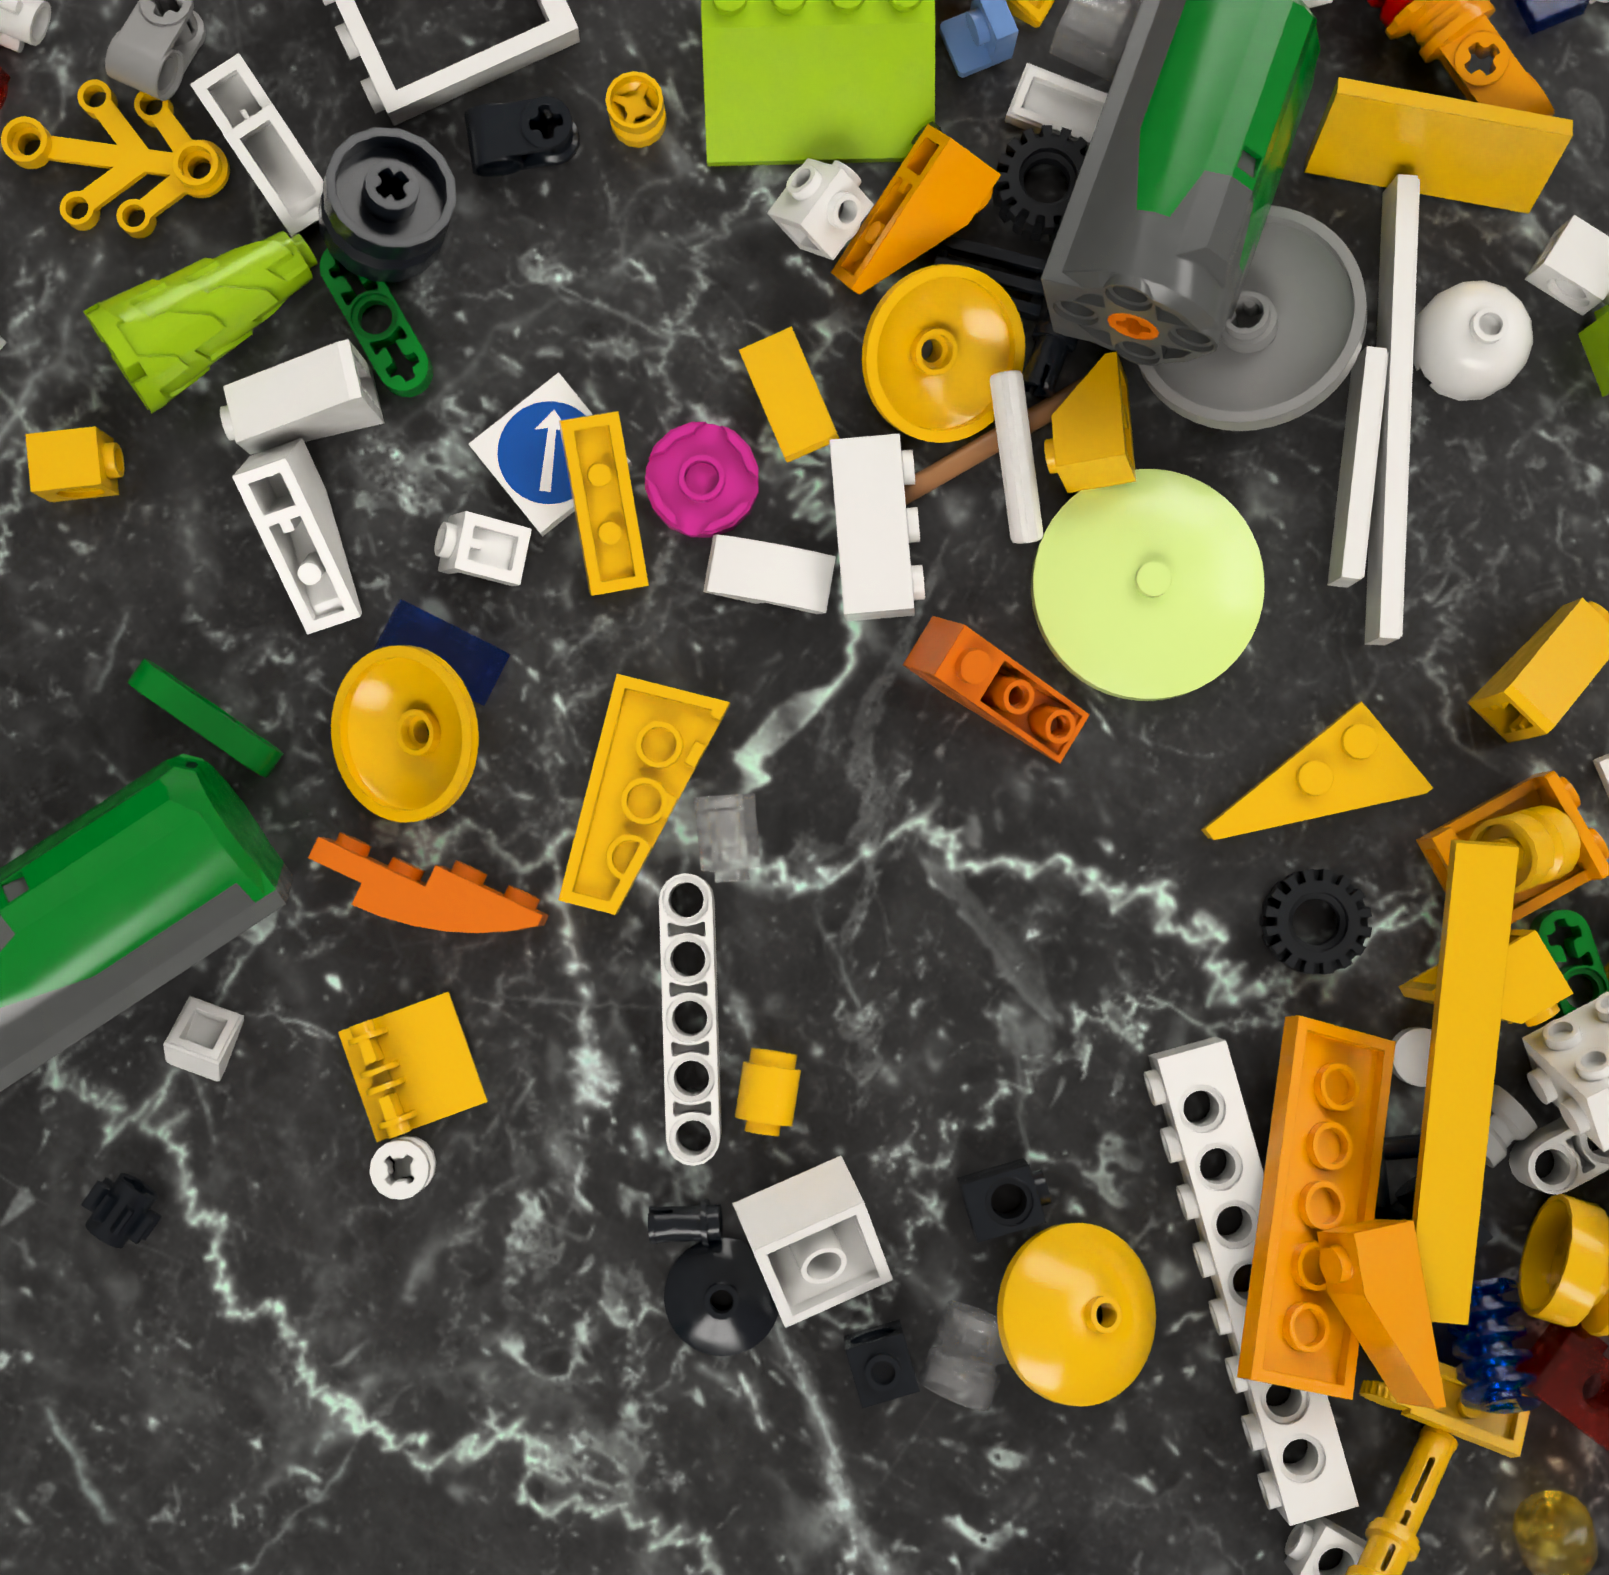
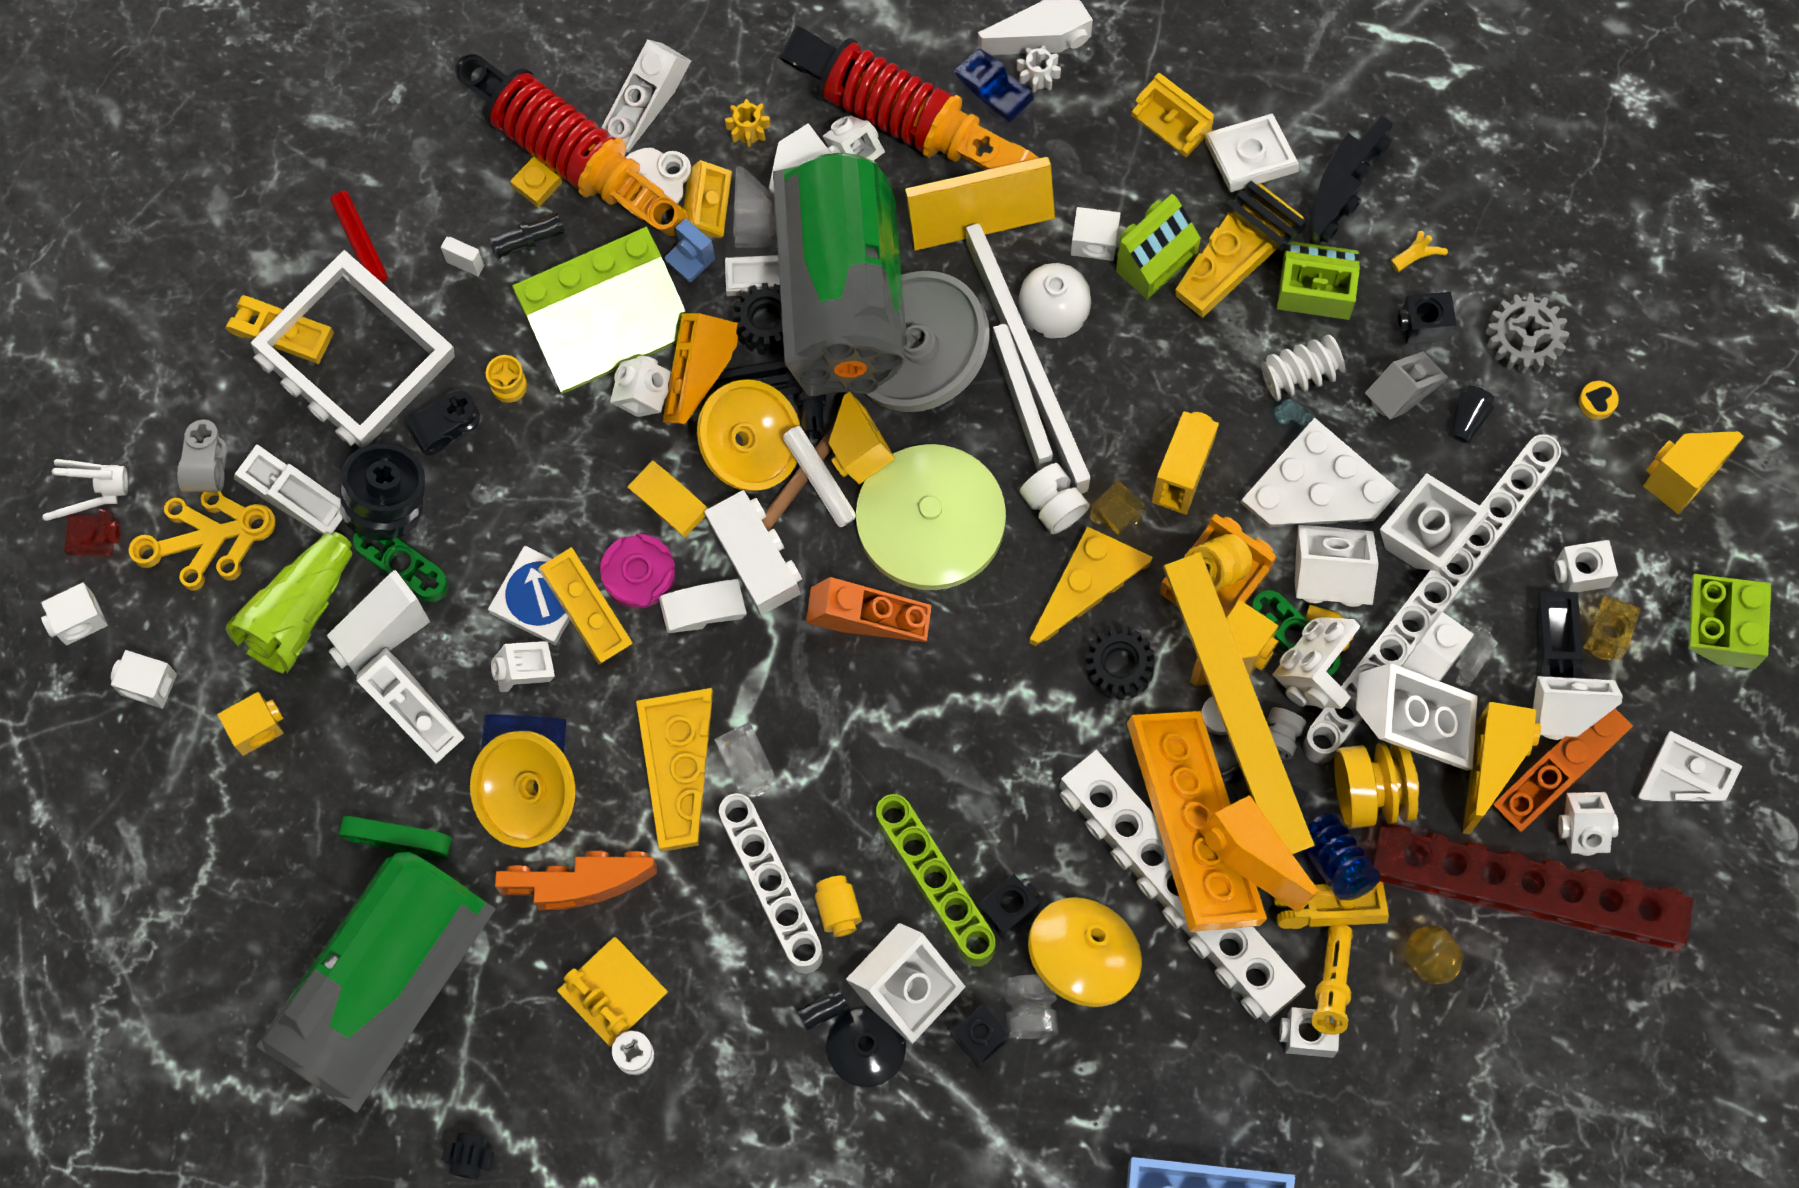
camera: 20 degrees left, 15 degrees down
(203, 1038) = (474, 1034): white slope -> none
(930, 1143) = (932, 861): none -> lime beam
(1335, 641) = (1054, 498): none -> white wheel
(1419, 699) = (1118, 508): none -> clear yellow panel

